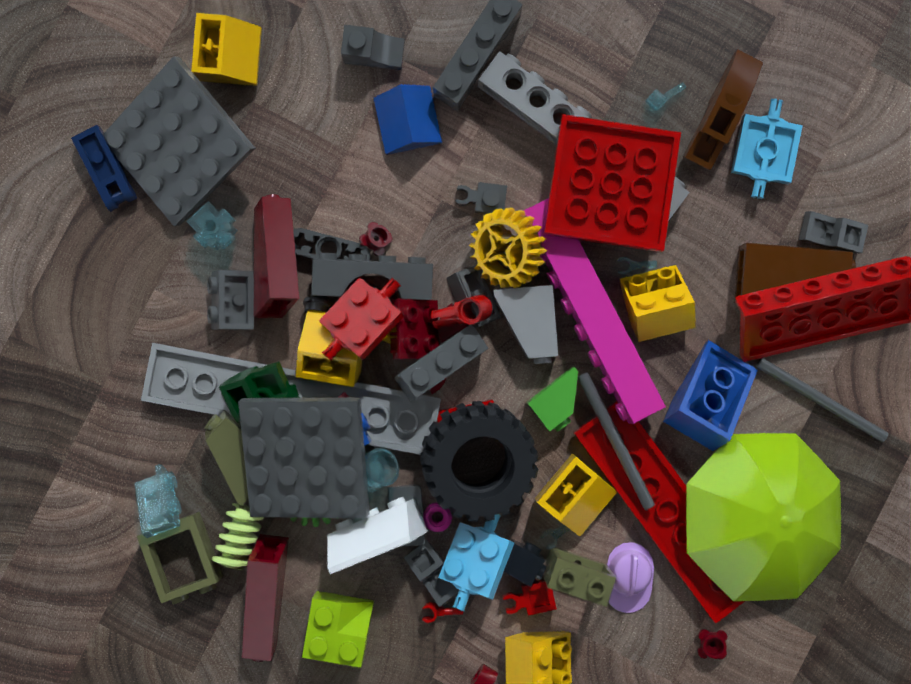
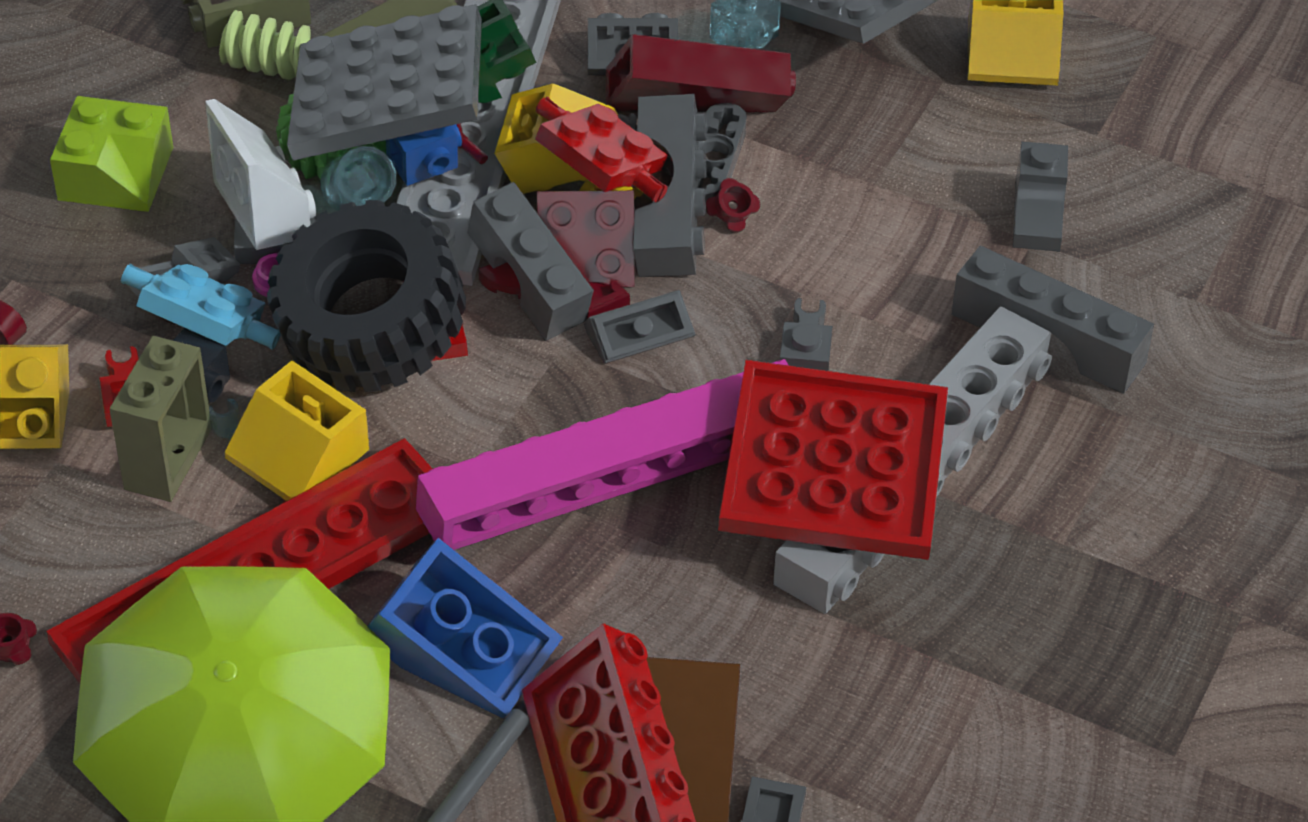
camera: 85 degrees right, 40 degrees down
(264, 597) = (177, 68): dark red slope -> none
(407, 118) = (928, 248): blue slope -> none
(439, 611) = (115, 273): red hand -> none
(462, 313) = (614, 288): red pin -> none
(520, 256) = (719, 338): yellow gear -> none
(531, 319) = (594, 380): light grey slope -> none
(556, 401) = (460, 416): bright green slope -> none
(616, 441) = (374, 490): dark grey piece -> none
(634, 577) = (144, 526): lavender piece -> none
(635, 265) = (697, 529): clear light blue hand -> none
(657, 99) = (995, 570): clear light blue hand -> none
(658, 303) = (628, 555): yellow slope -> none
(724, 109) = (993, 643): reddish brown slope -> none
(766, 149) = (919, 722): medium azure plate -> none

